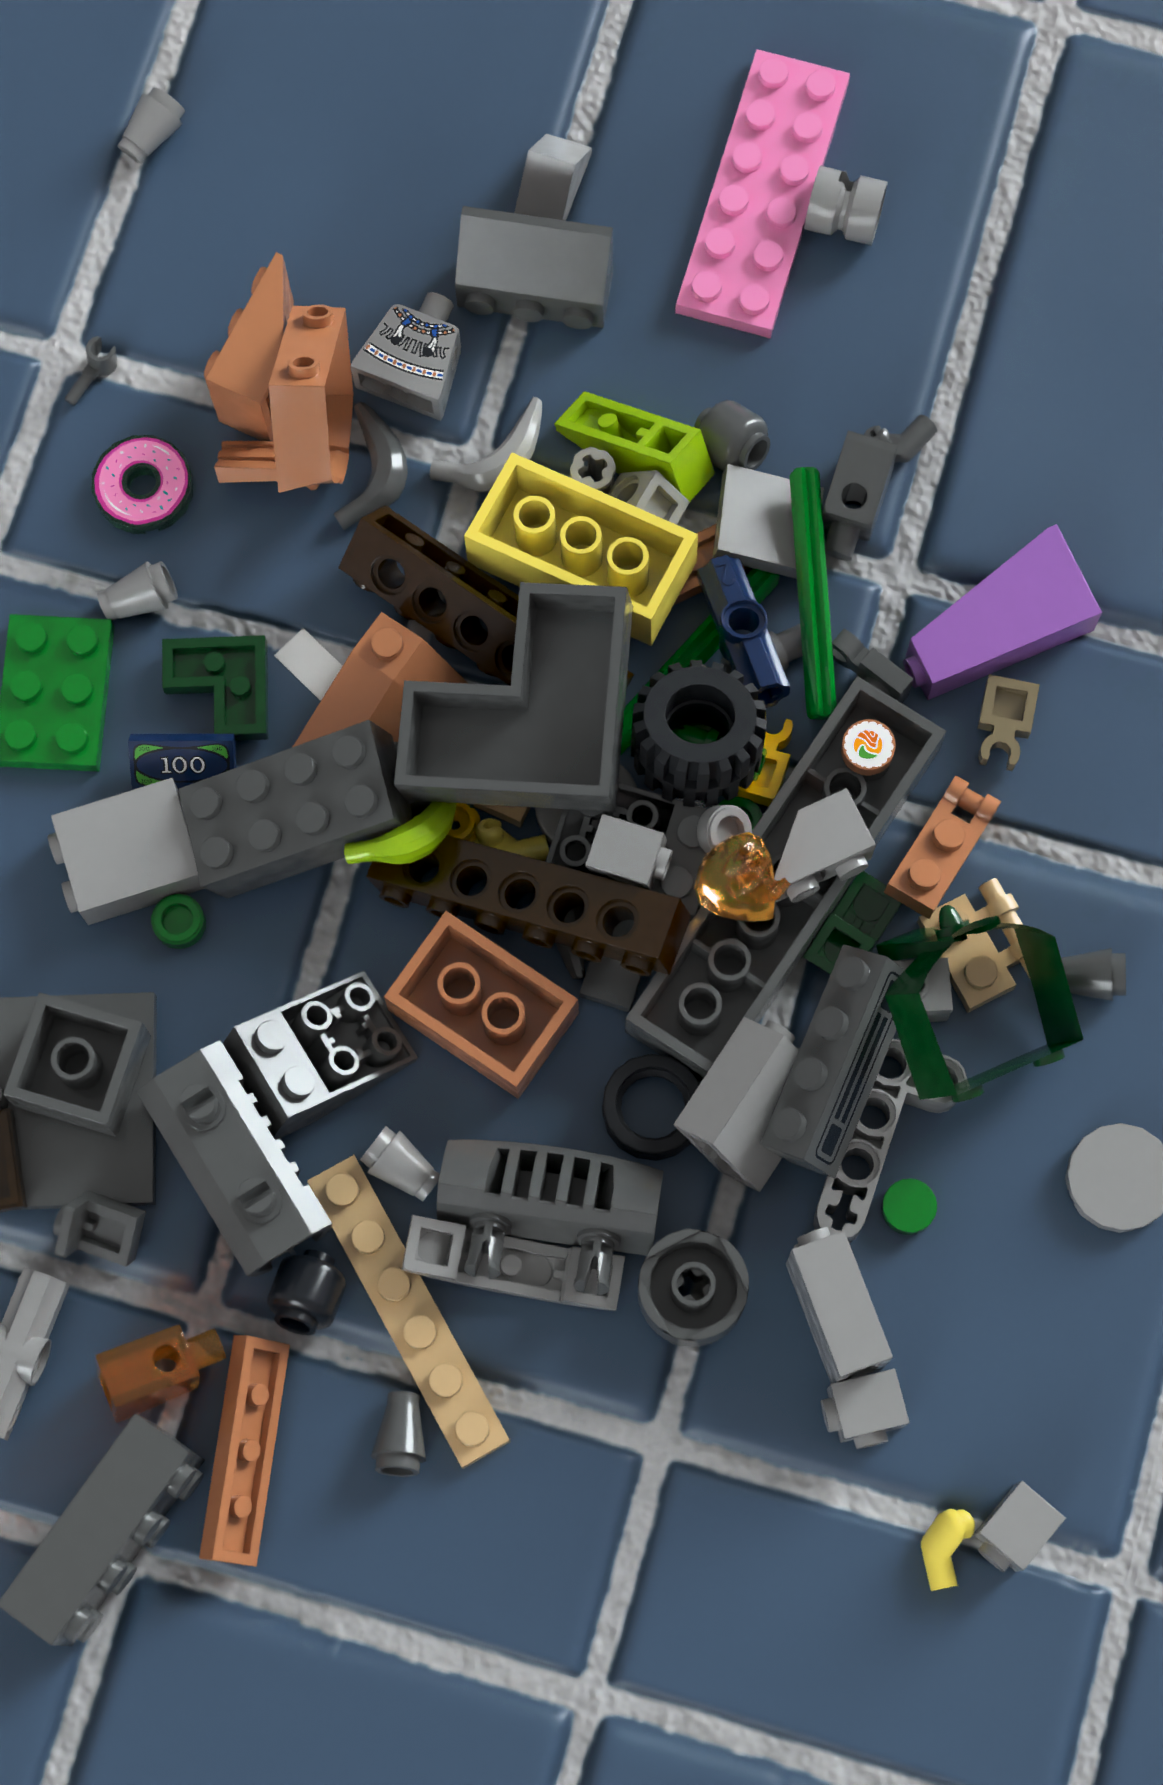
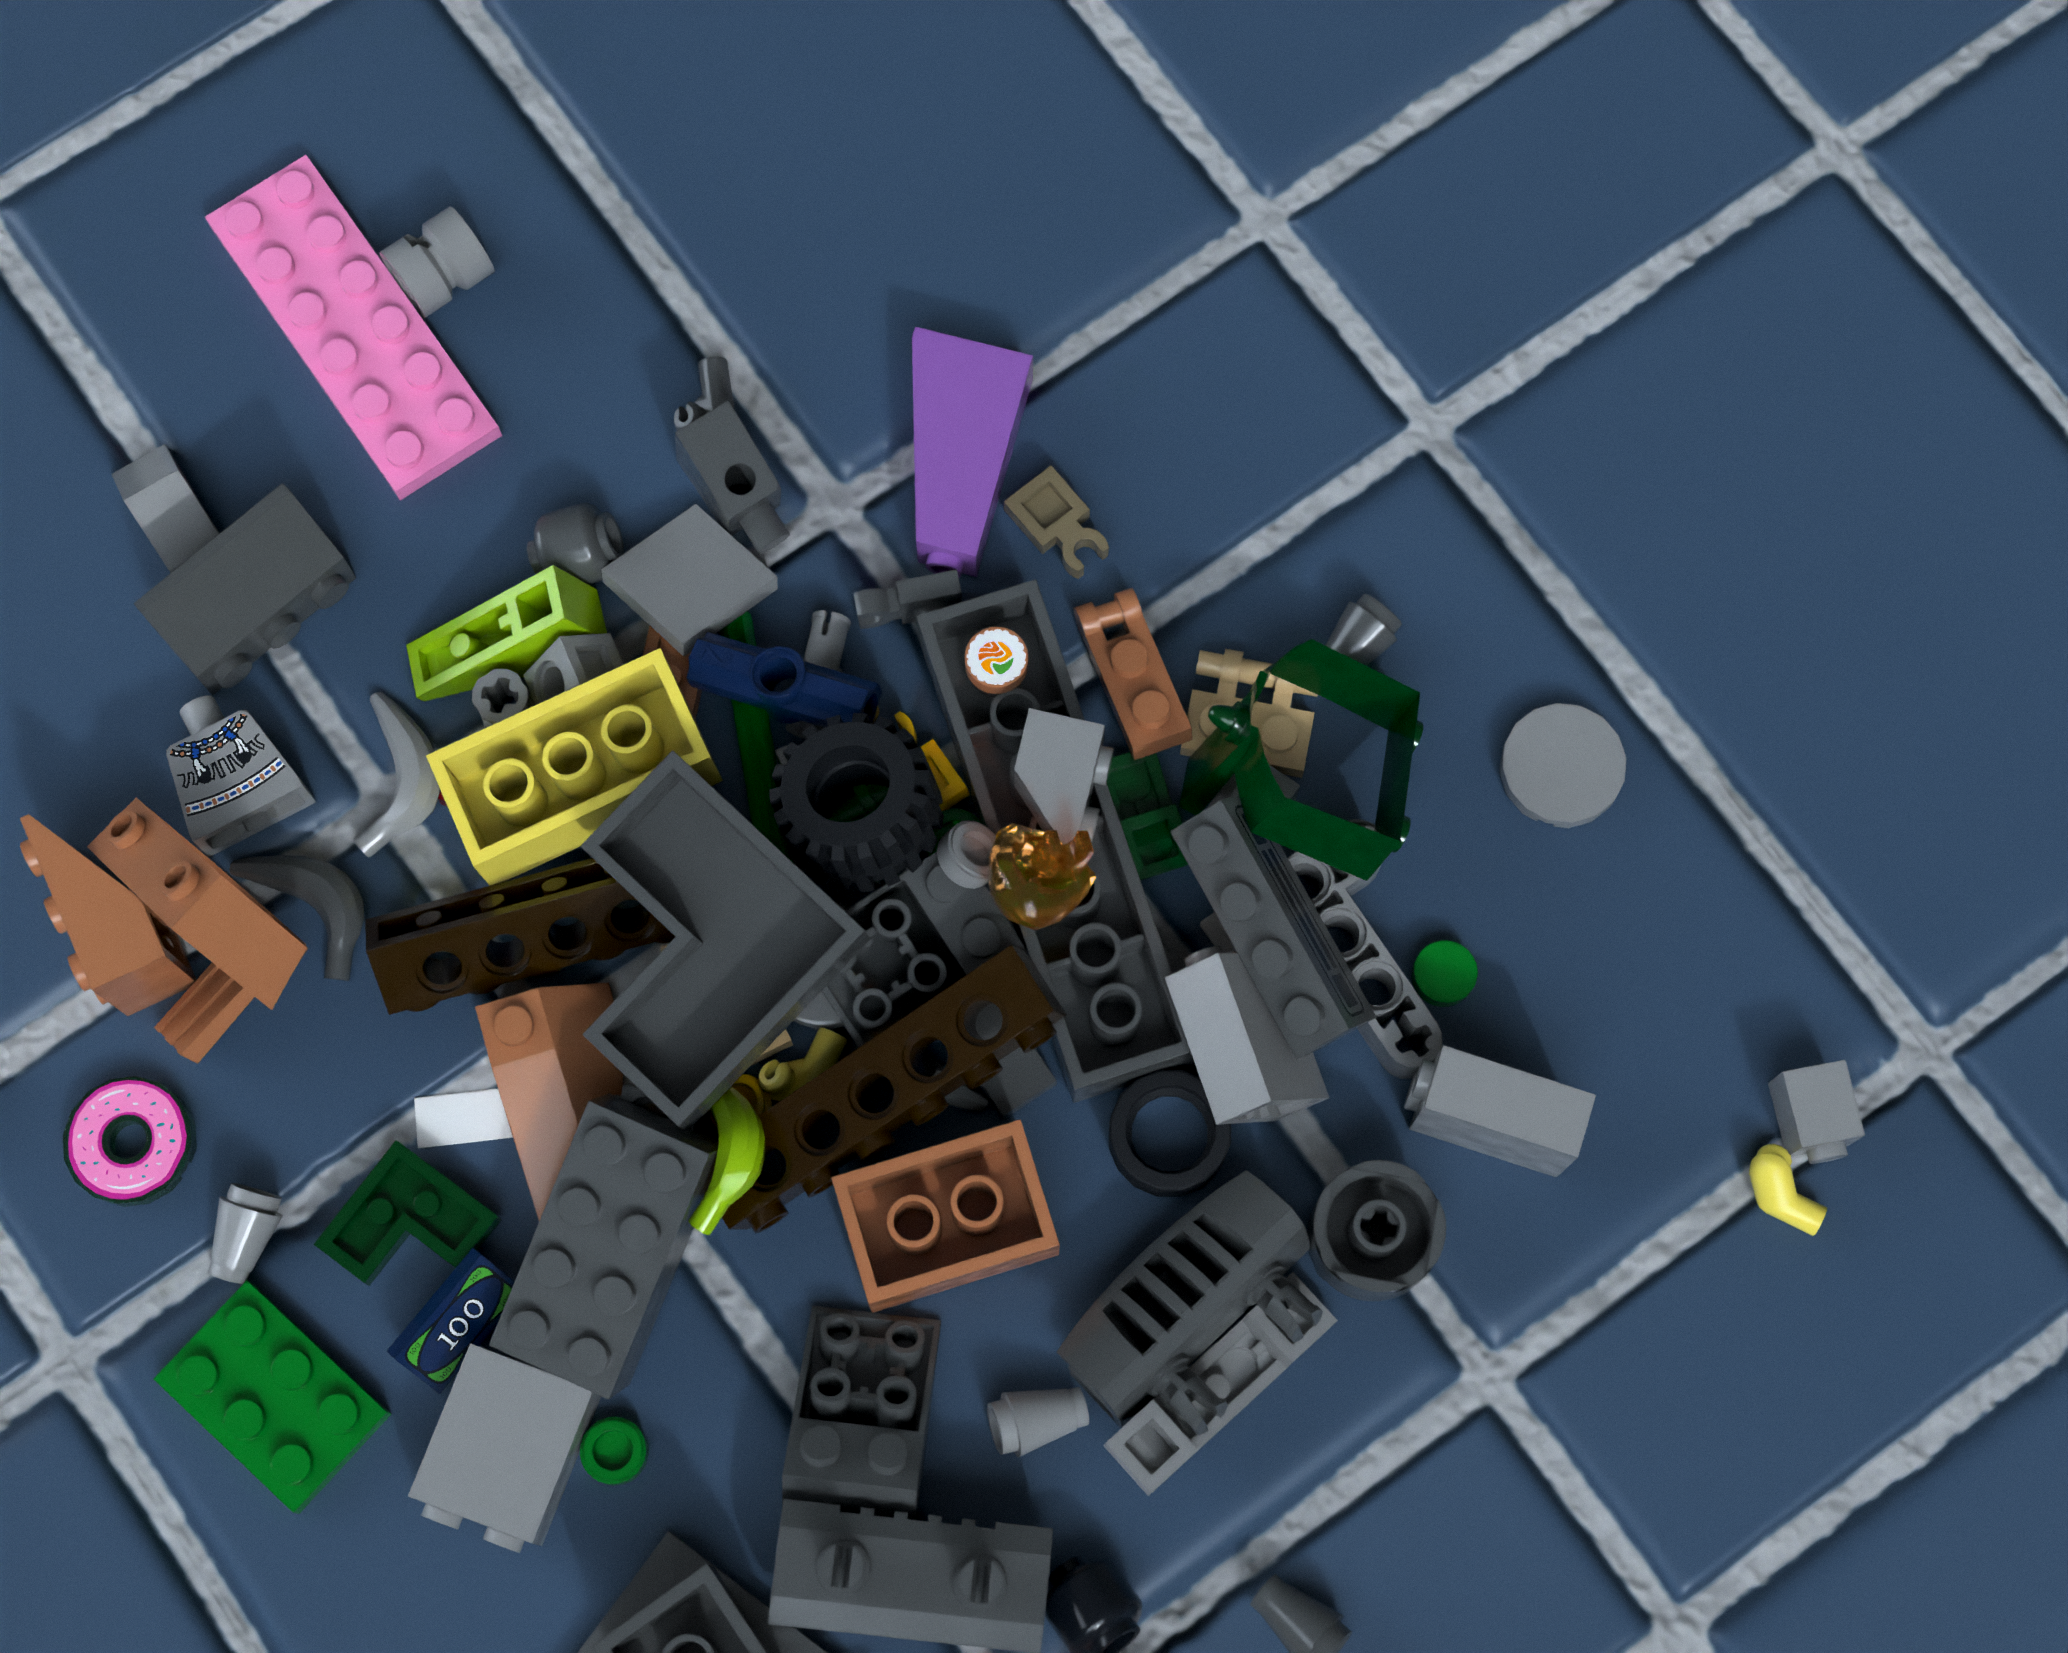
camera: 55 degrees left, 0 degrees up
(409, 1313) = (1185, 1522): tan plate -> none
(628, 853) = (924, 958): light grey brick -> none
(813, 593) = (797, 592): green axle -> none
(865, 1408) = (1608, 1162): light grey brick -> none

